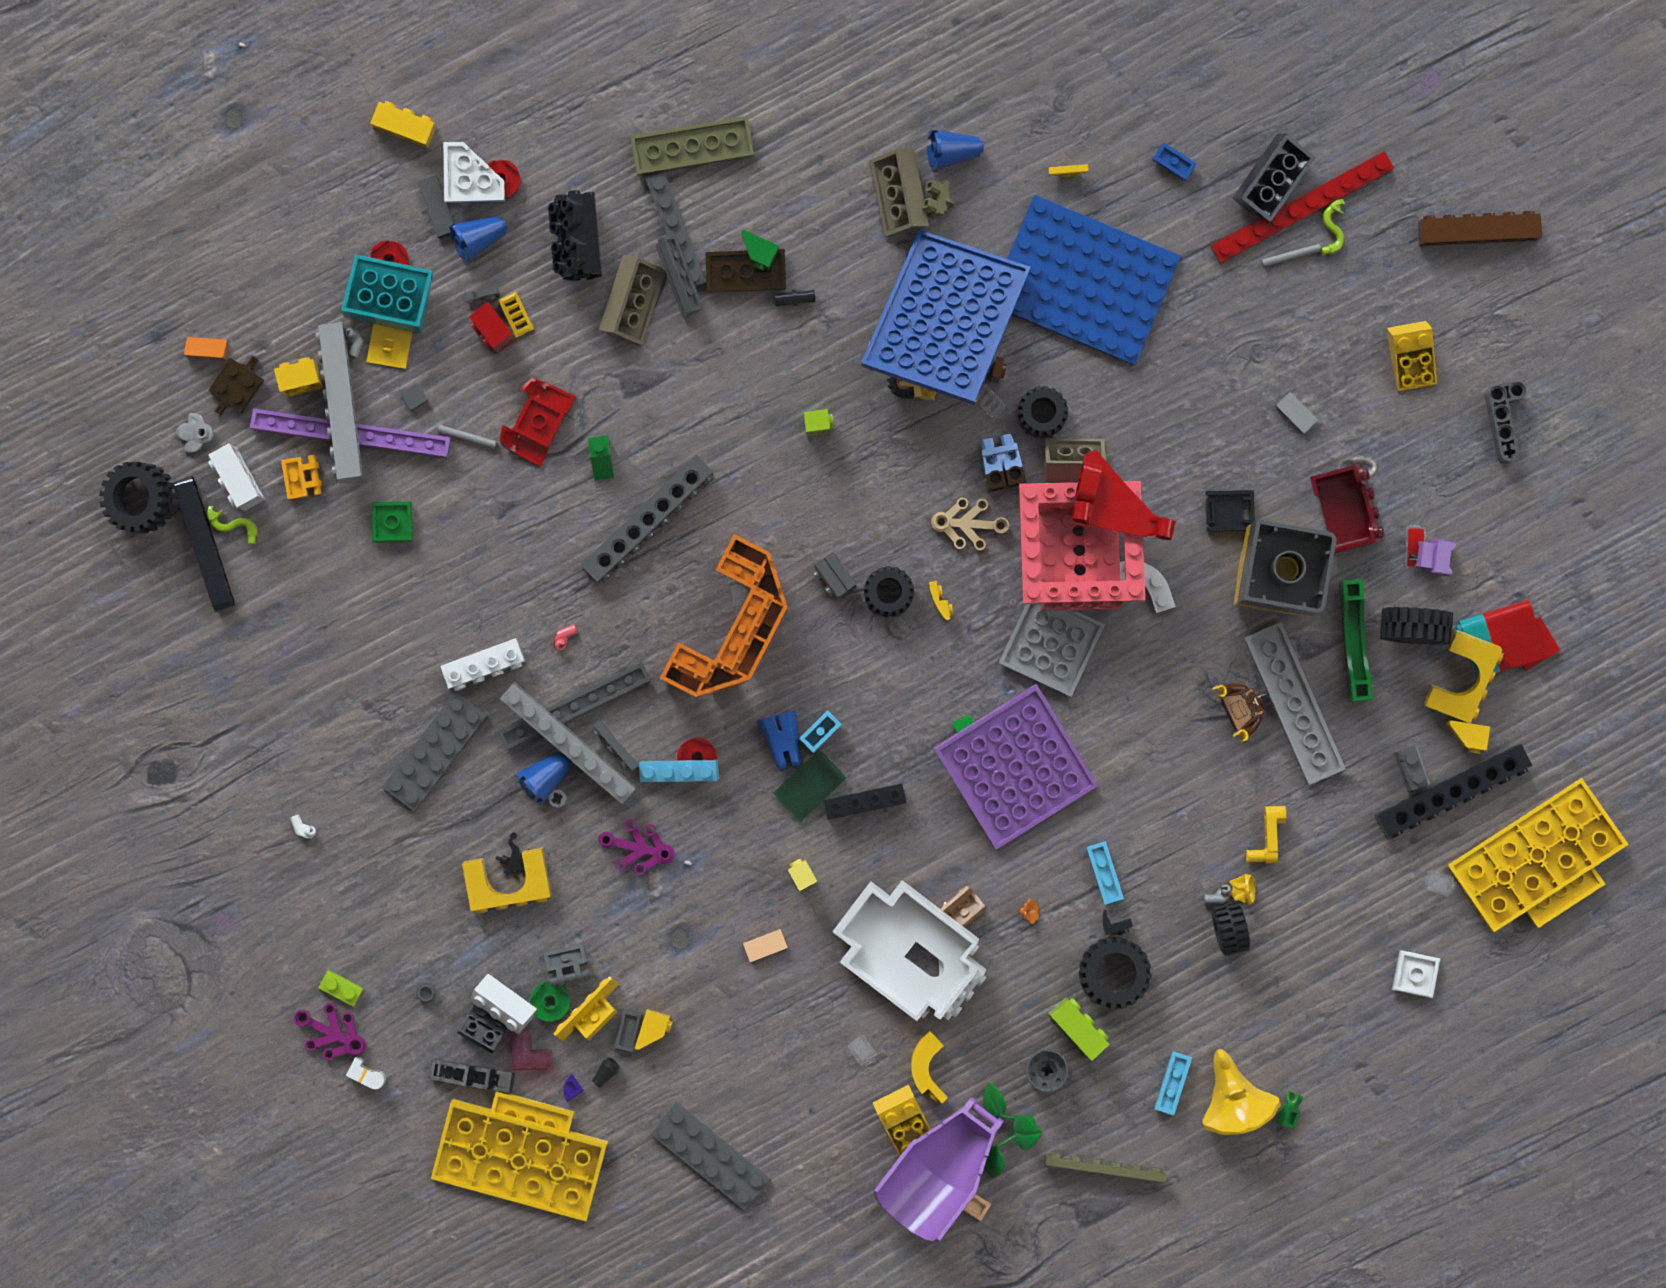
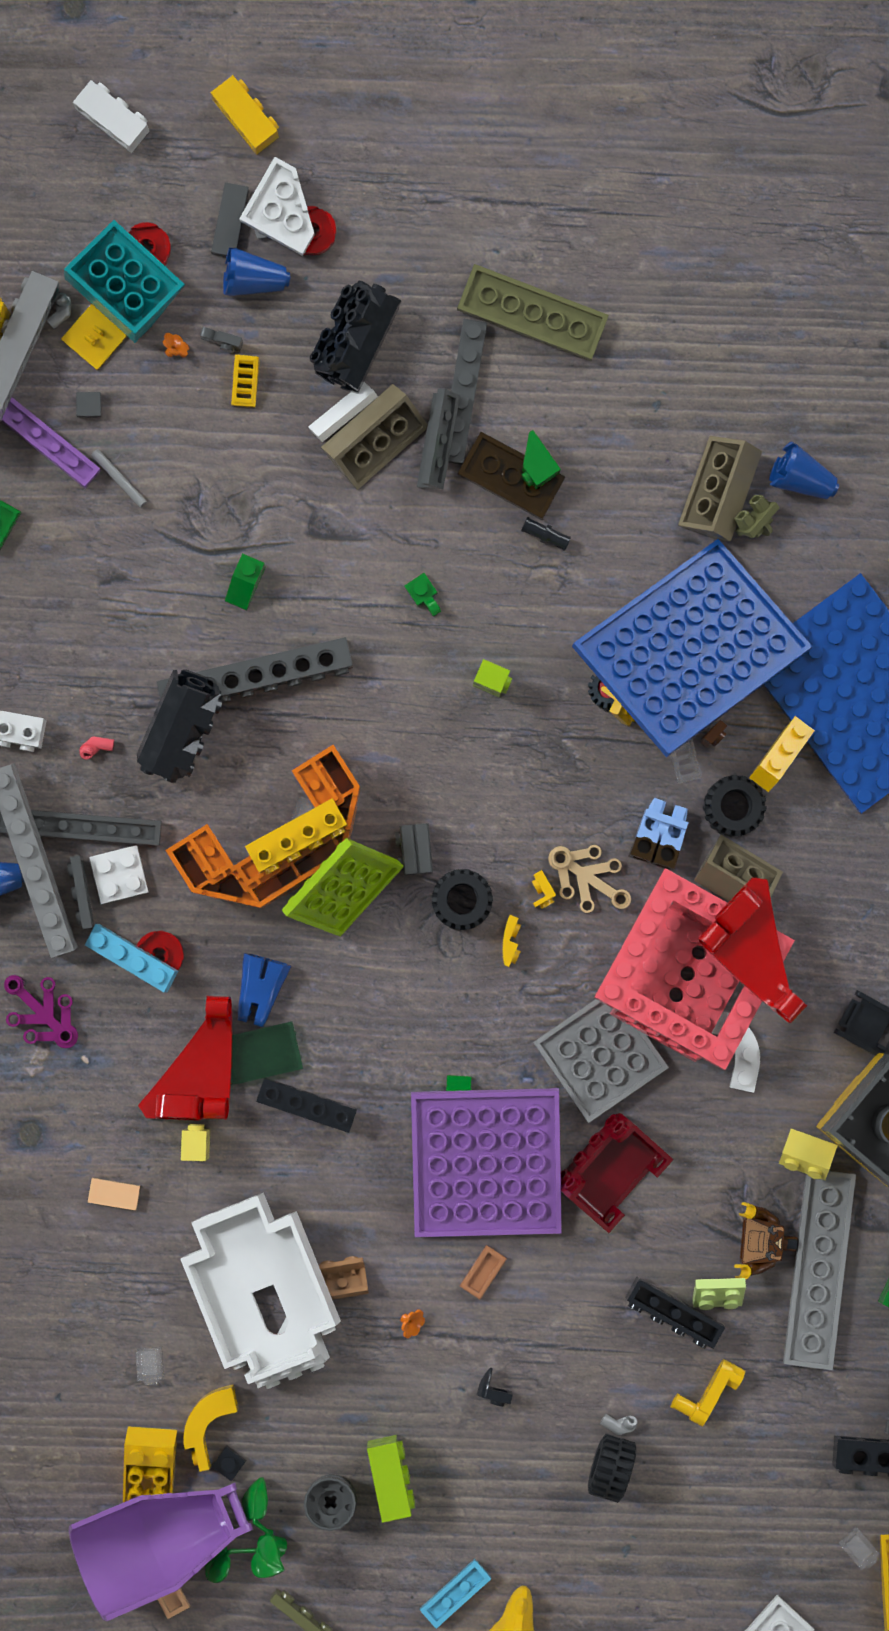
camera: 20 degrees right, 0 degrees up
(308, 181) = (111, 115): none -> white brick
(451, 318) = (175, 345): none -> orange plant
(490, 325) = (211, 380): red brick -> none
(537, 421) = (201, 504): red piece -> none
(599, 296) = (342, 412): none -> white tile
(615, 586) = (179, 725): none -> black brick
(634, 717) = (119, 874): none -> white plate
(731, 391) = (422, 592): none -> green plate
(746, 613) = (296, 836): none -> yellow brick
(777, 825) = (200, 1077): none -> red panel
(800, 631) = (342, 887): none -> lime plate
(820, 731) = (303, 1004): medium azure brick -> none
(940, 548) = (542, 885): none -> yellow bracket
(959, 1087) = (229, 1463): none -> black plate
(1054, 355) = (781, 754): none -> yellow brick
(1059, 846) = (483, 1272): none -> nougat tile
(1093, 957) = (454, 1410): black tyre -> none
(1104, 873) = (514, 1329): medium azure plate -> none
(1106, 719) = (611, 1169): none -> dark red windscreen
(1217, 794) = (676, 1313): none -> black brick
(1233, 761) = (719, 1293): none -> yellowish green plate
(1239, 627) = (808, 1154): none -> light yellow brick
(1243, 889) = (650, 1433): yellow piece -> none

